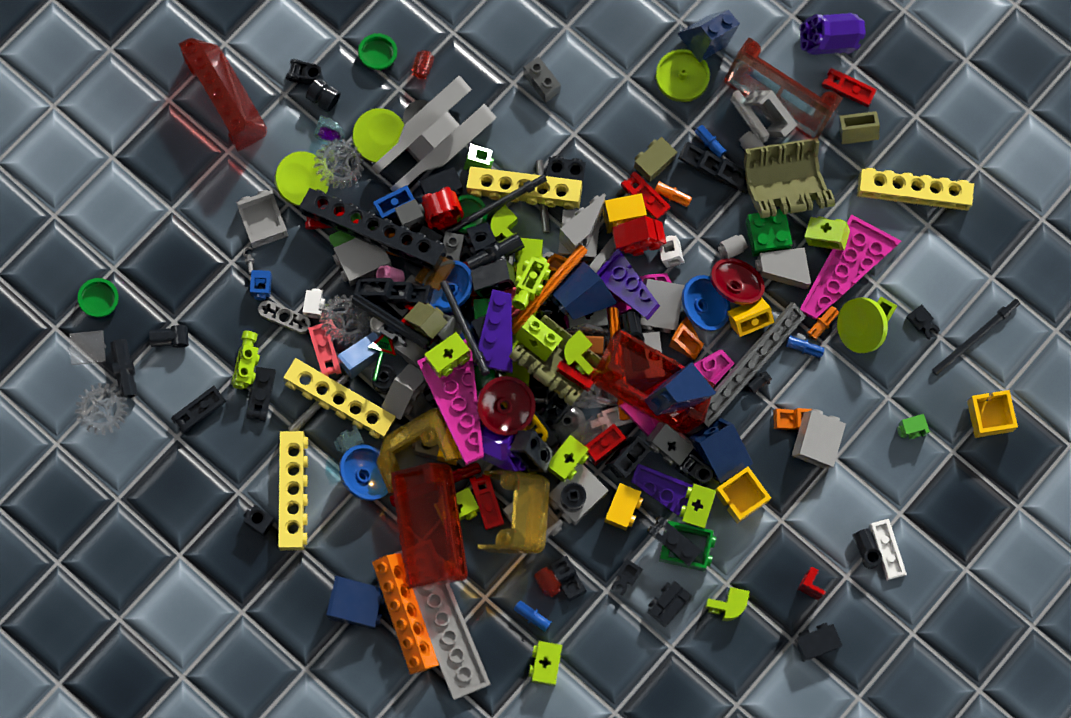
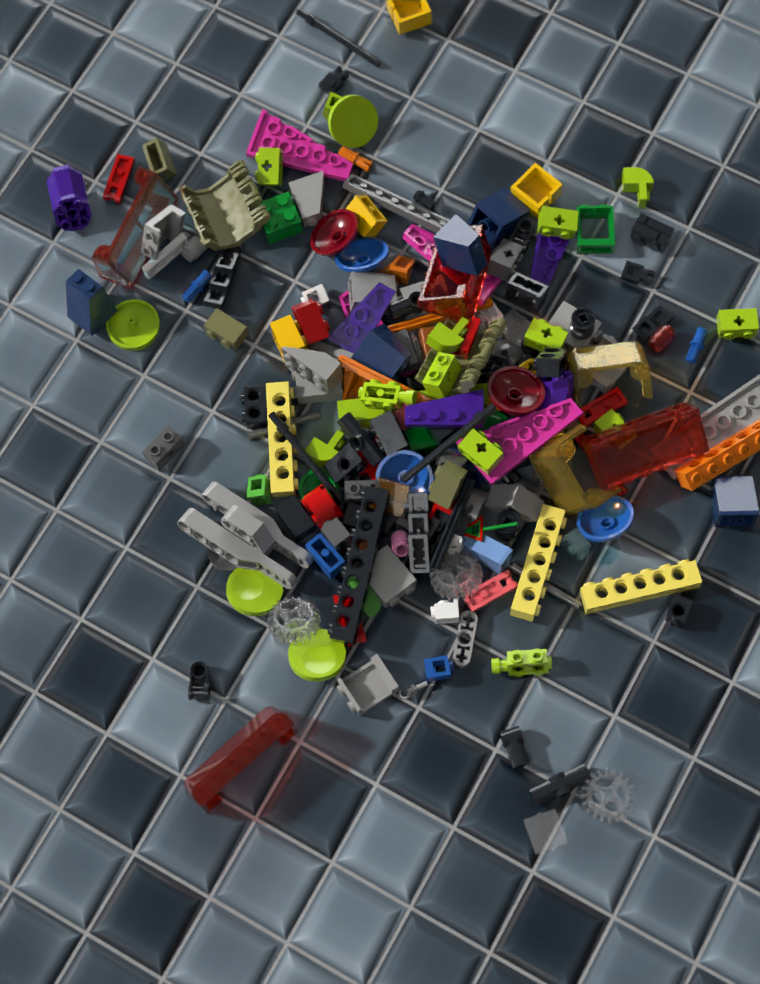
camera: 90 degrees left, 5 degrees down
(98, 297) = (491, 832): green piece -> none
(198, 409) = (582, 698): black plate -> none
(261, 393) = (551, 641): black plate -> none
(324, 96) = (222, 652): black wheel -> none
(328, 130) = (259, 642): rock -> none
(377, 51) = (162, 613): green piece -> none
(422, 64) = (168, 566): clear red brick -> none
(605, 443) = (518, 312): red panel -> none
(623, 506) = (574, 287): yellow brick -> none
(654, 203) = (262, 332): red plate -> none
(673, 194) = (257, 309): orange axle -> none
(674, 541) = (597, 234): black plate -> none
(732, 246) = (299, 246): light grey brick -> none
(788, 418) = (451, 166): orange slope -> none
(805, 346) = (381, 170): blue axle -> none
(808, 588) = (600, 121): red panel -> none
(818, 642) = (650, 109): black brick -> none
(819, 439) = (466, 139): light grey brick -> none
(866, 547) = (555, 86): black piece -> none
(886, 543) = (550, 73): white tile -> none
(906, 194) = (212, 146): light yellow brick -> none
(913, 427) = (435, 69): bright green brick -> none

